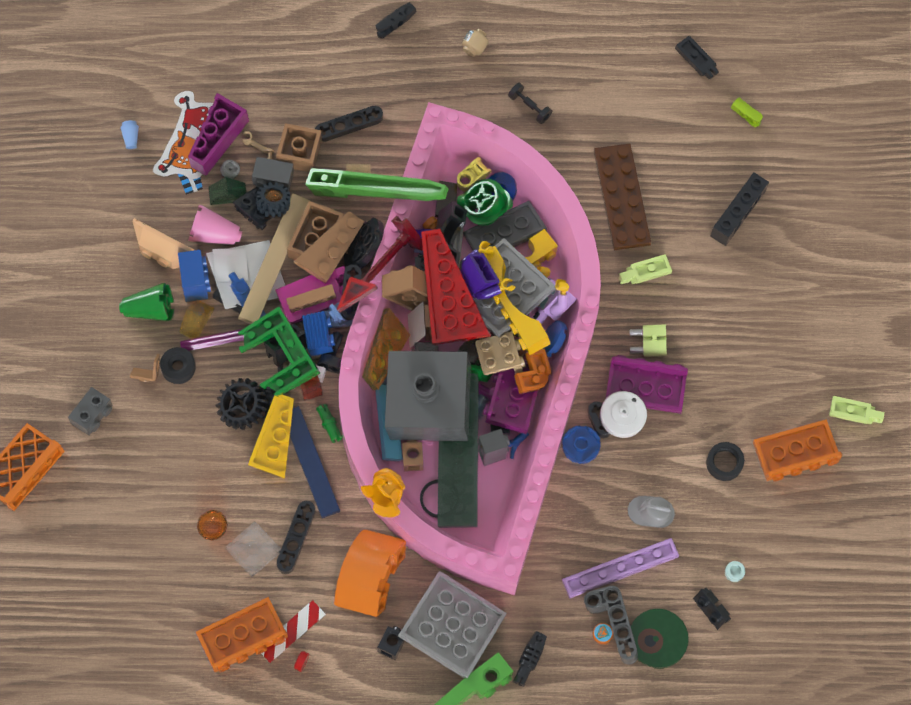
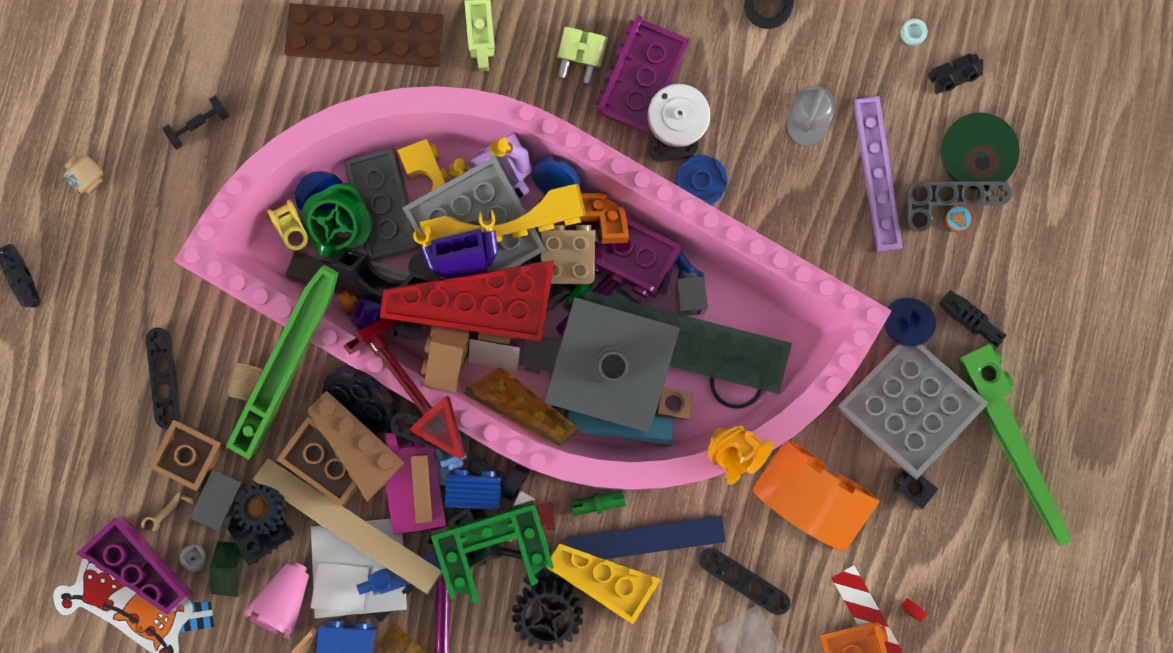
camera: 75 degrees left, 15 degrees up
(515, 613) = (910, 322): none -> clear blue piece

